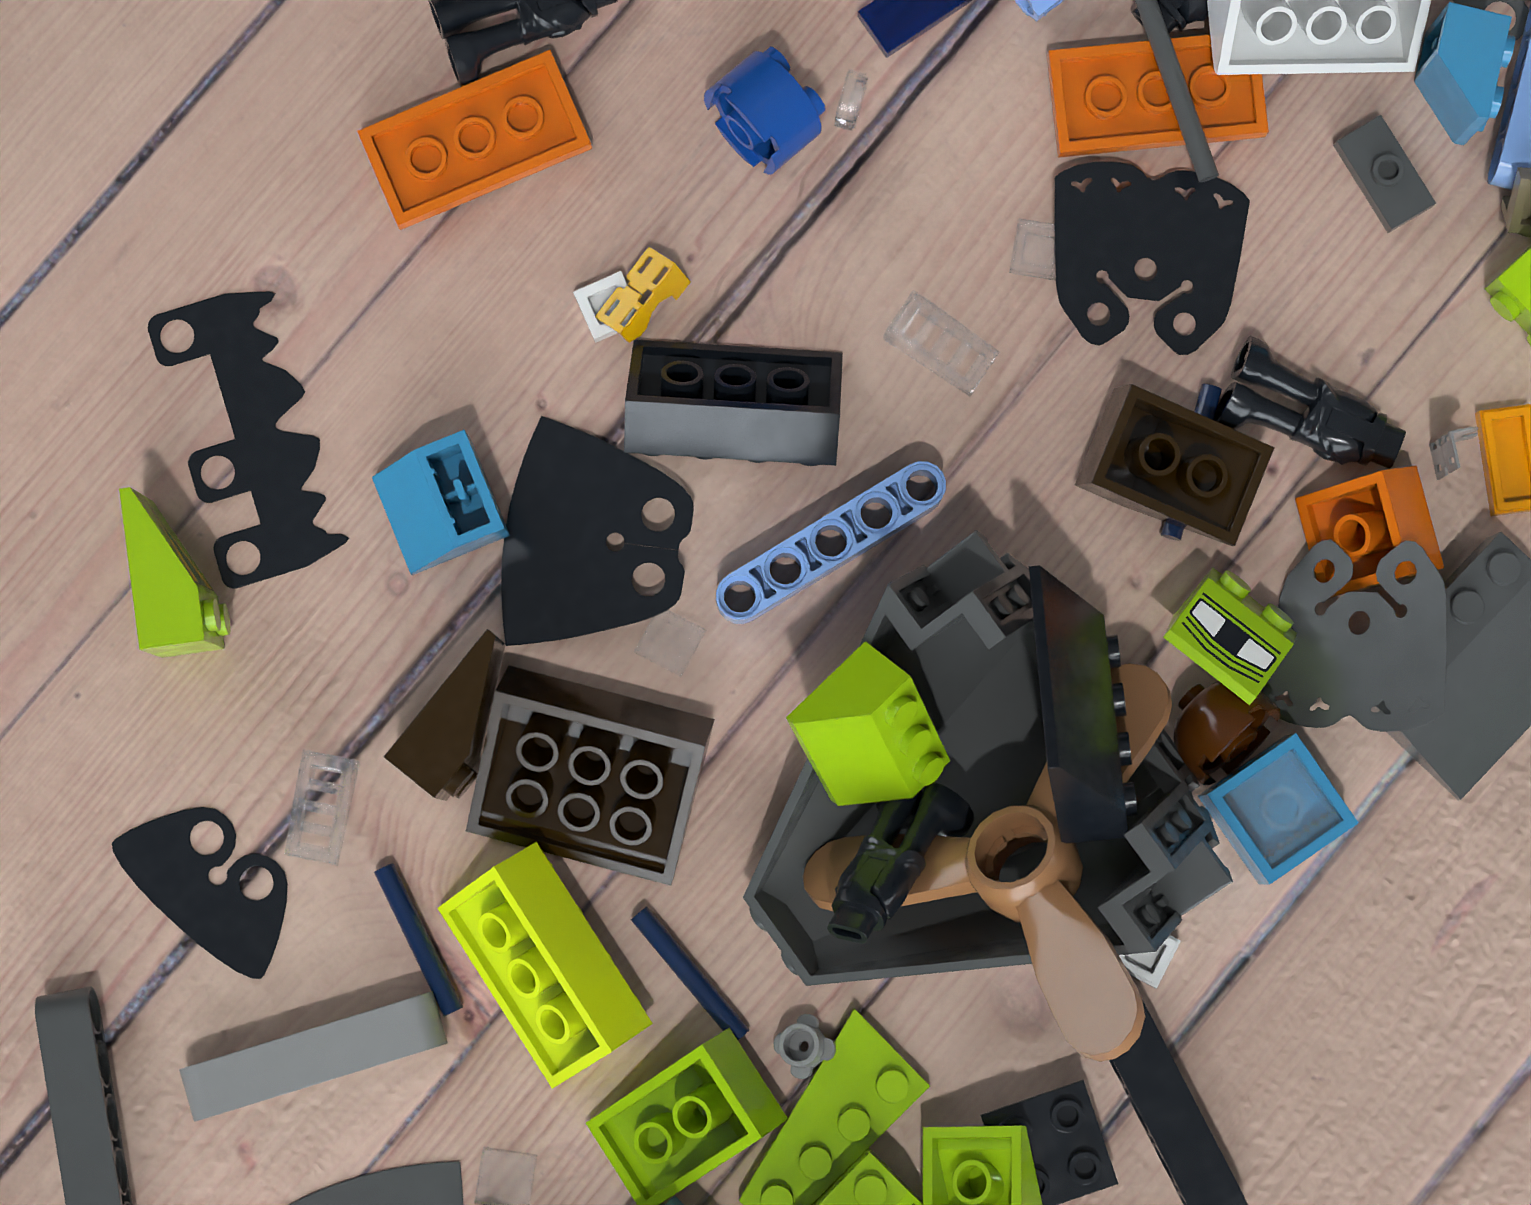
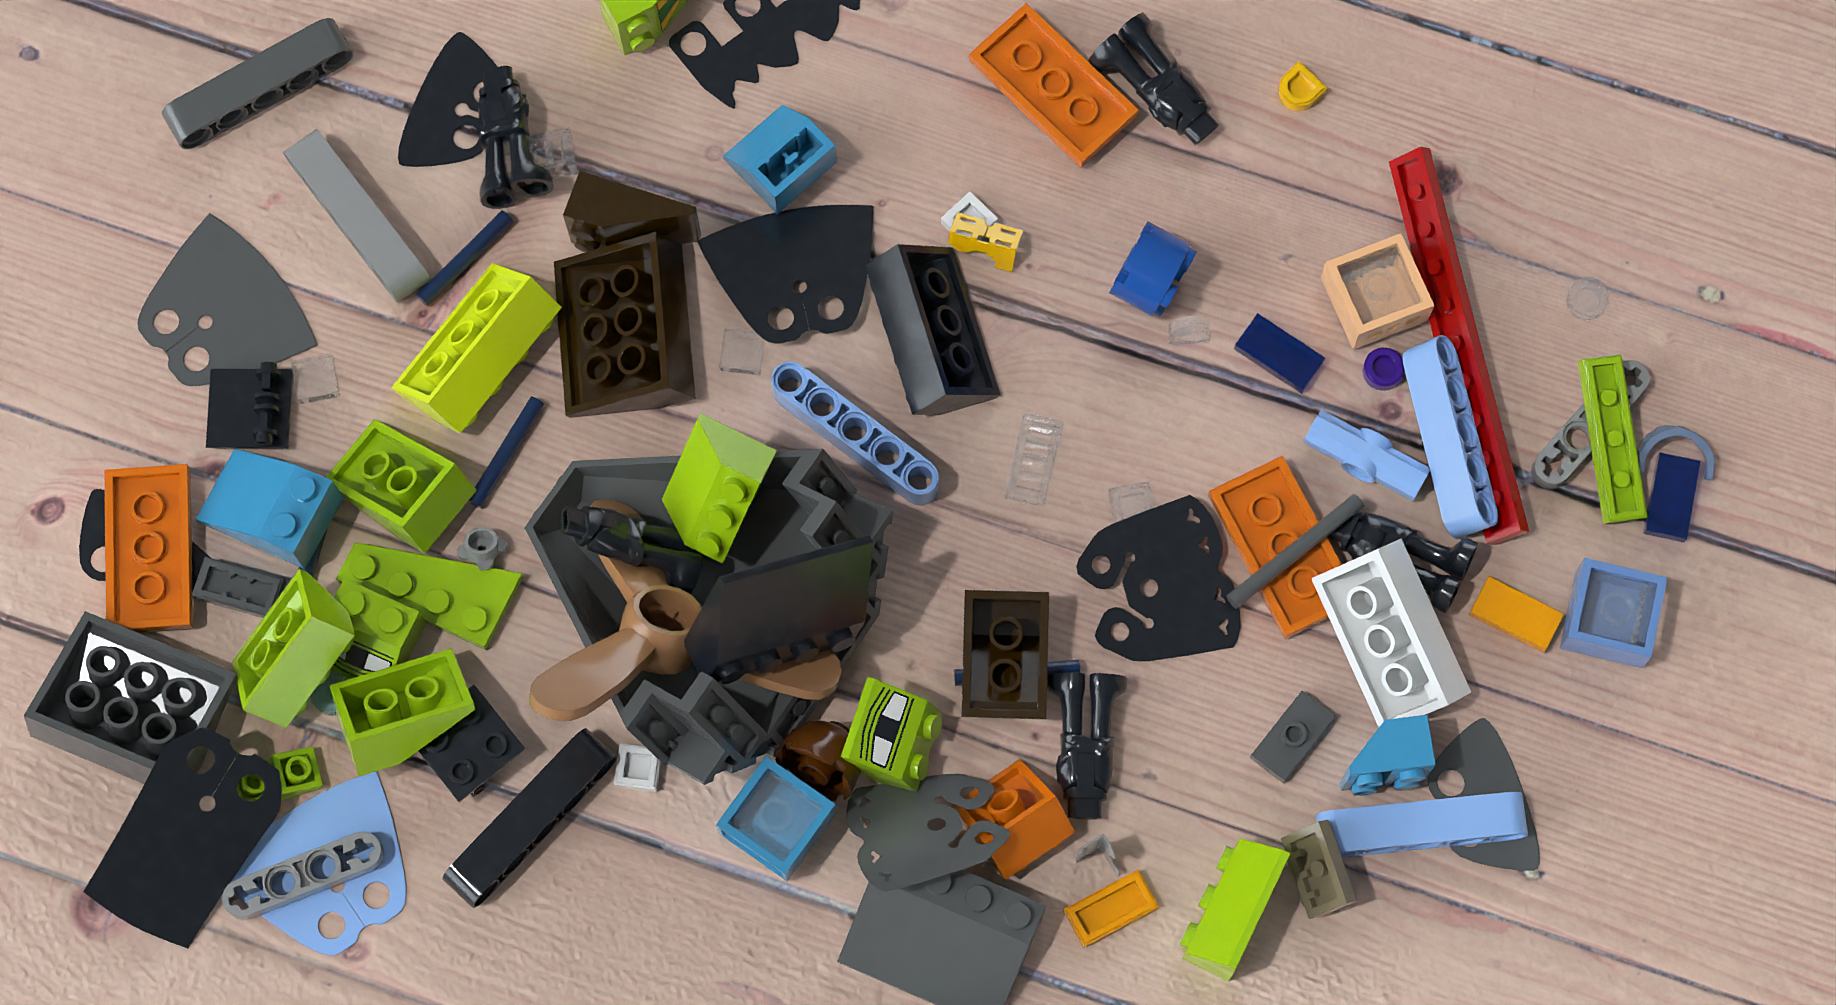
camera: 70 degrees right, 10 degrees down
(256, 829) = (504, 118): none -> black piece

